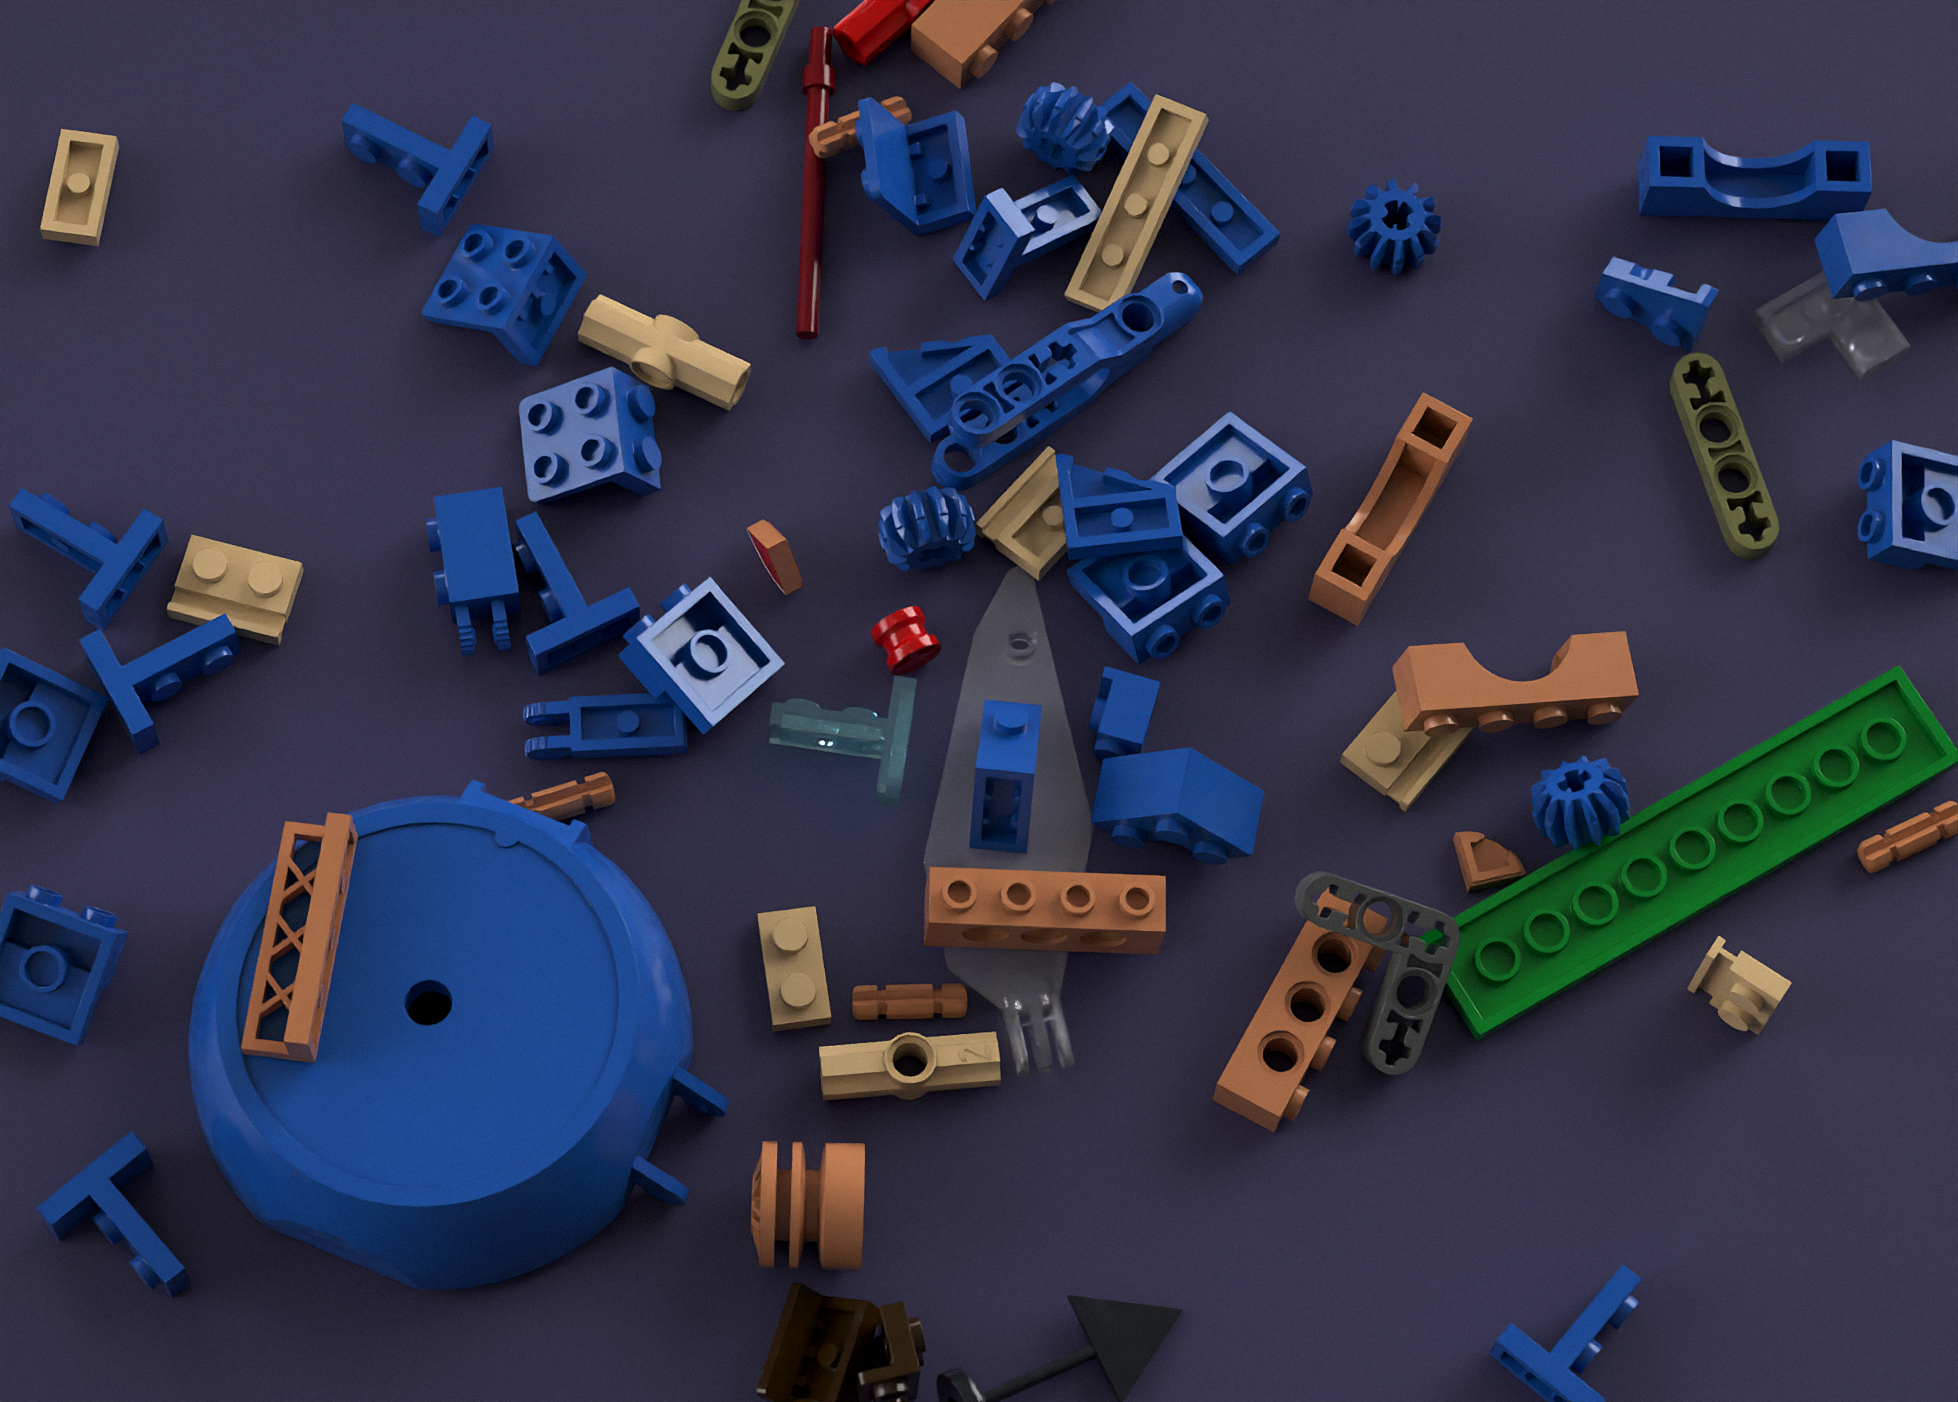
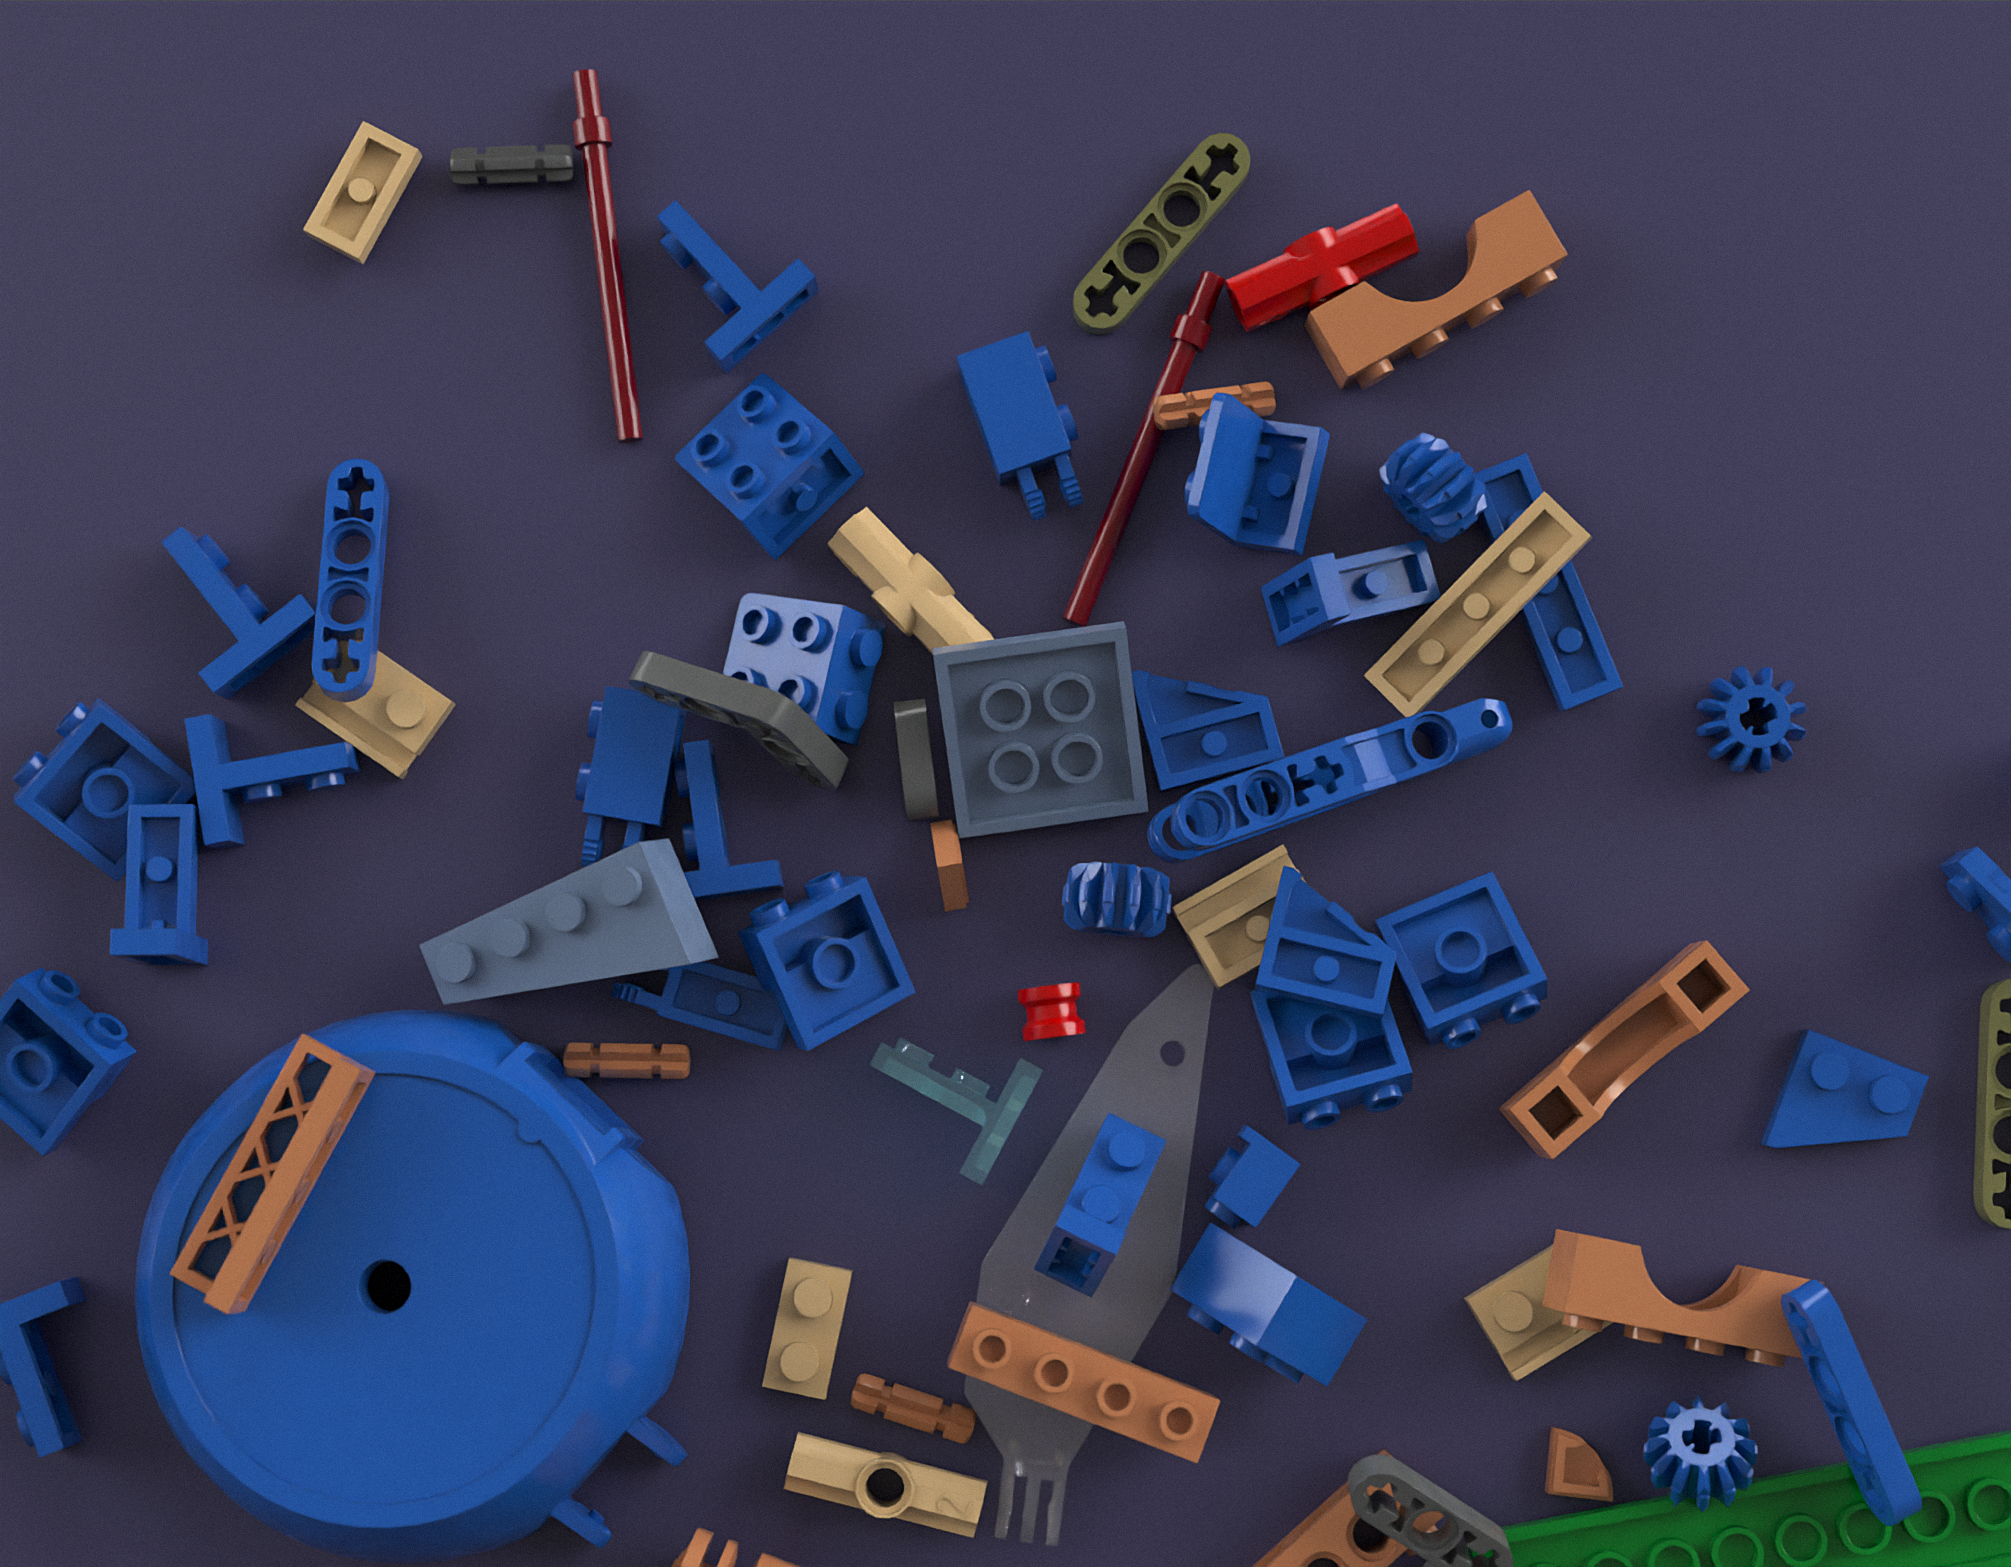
camera: 25 degrees right, 15 degrees up
(108, 786) = (161, 888): none -> blue bracket
(181, 489) = (356, 579): none -> blue beam
(198, 127) = (511, 164): none -> dark grey axle
(261, 88) = (593, 138): none -> dark red bar
(477, 695) = (588, 926): none -> sand blue wedge
(561, 456) = (765, 714): none -> dark grey beam
(702, 186) = (1019, 417): none -> blue hinge
(716, 480) = (916, 759): none -> dark grey beam
(813, 416) = (1041, 729): none -> sand blue plate
(1585, 495) = (1841, 1096): none -> blue wing
(1684, 711) = (1851, 1402): none -> blue beam

